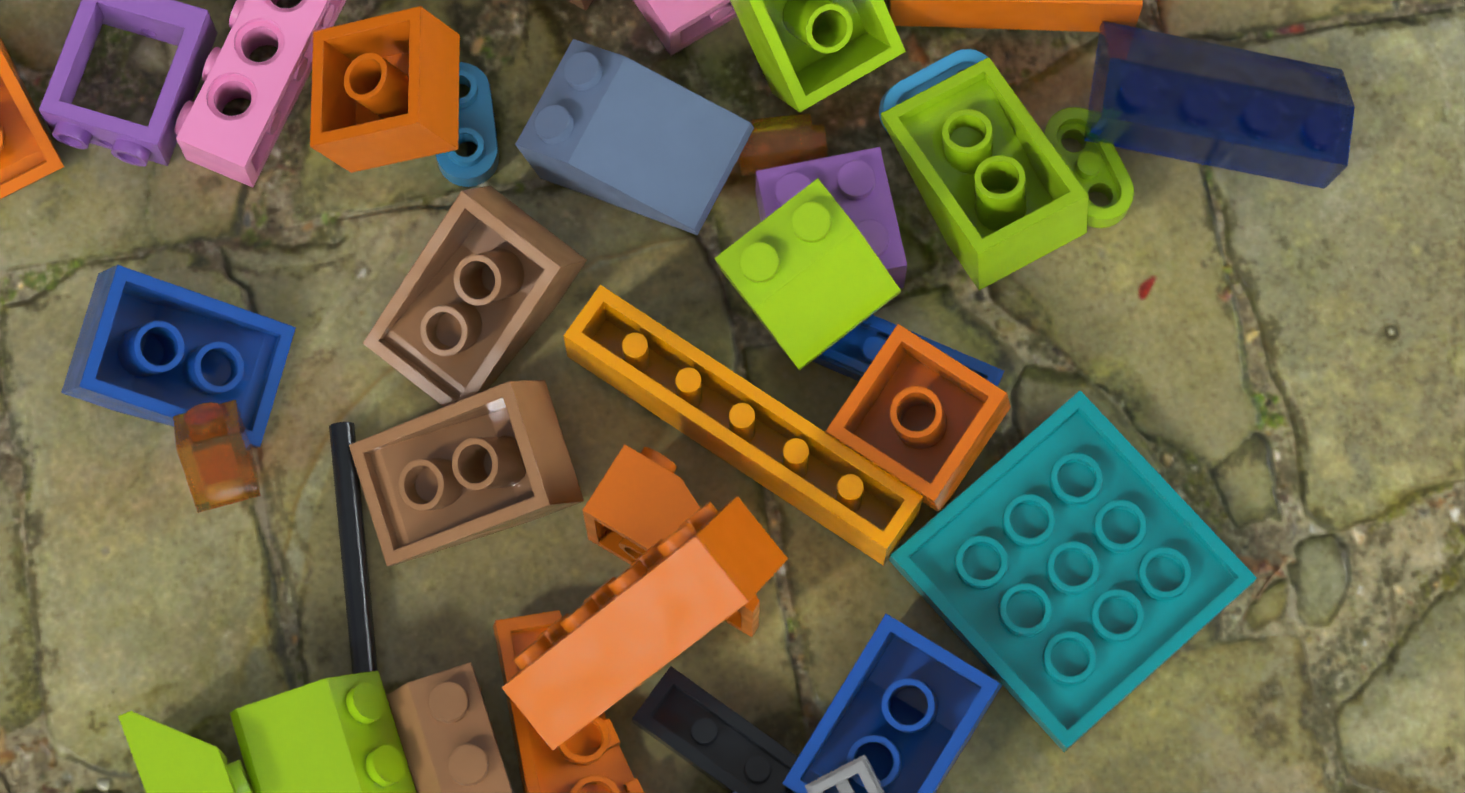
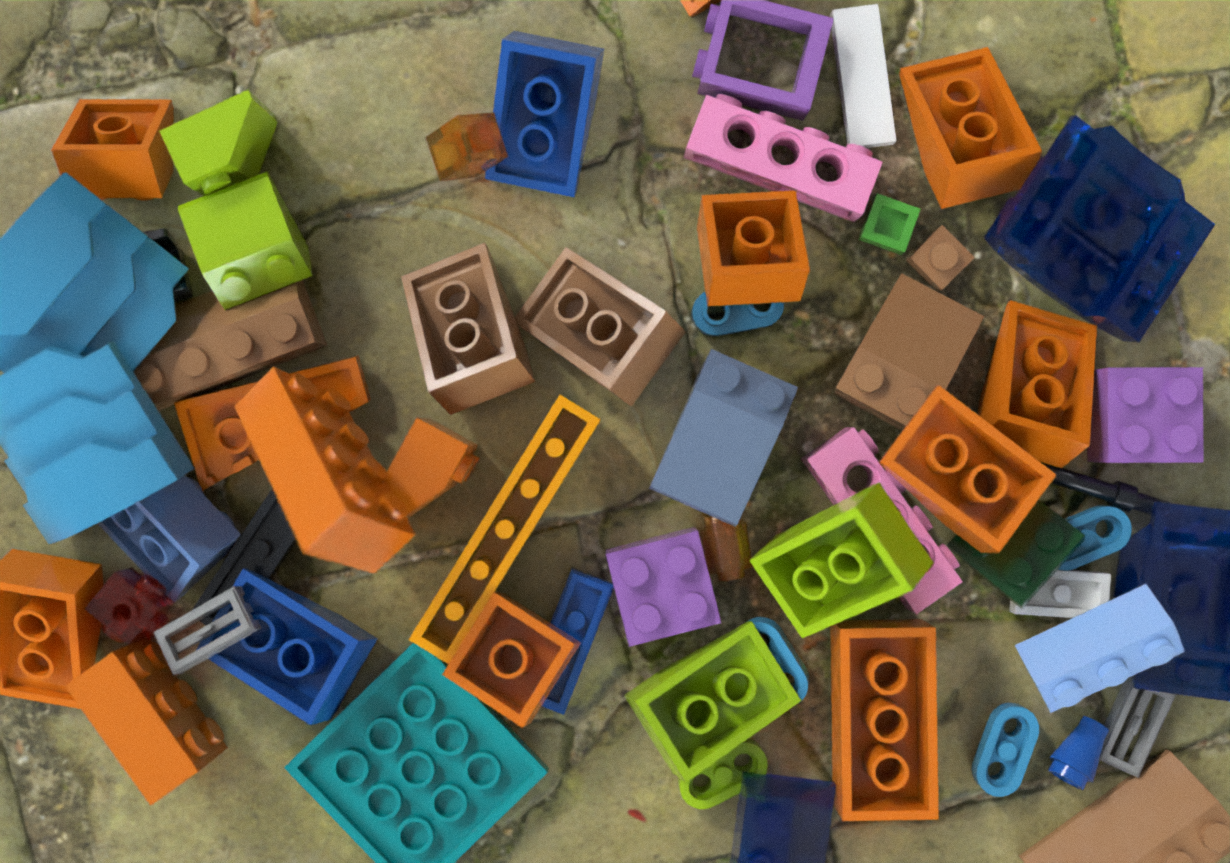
camera: 85 degrees right, 15 degrees up
(353, 550) = (410, 251): black bar -> none
(808, 274) = (610, 574): lime slope -> none

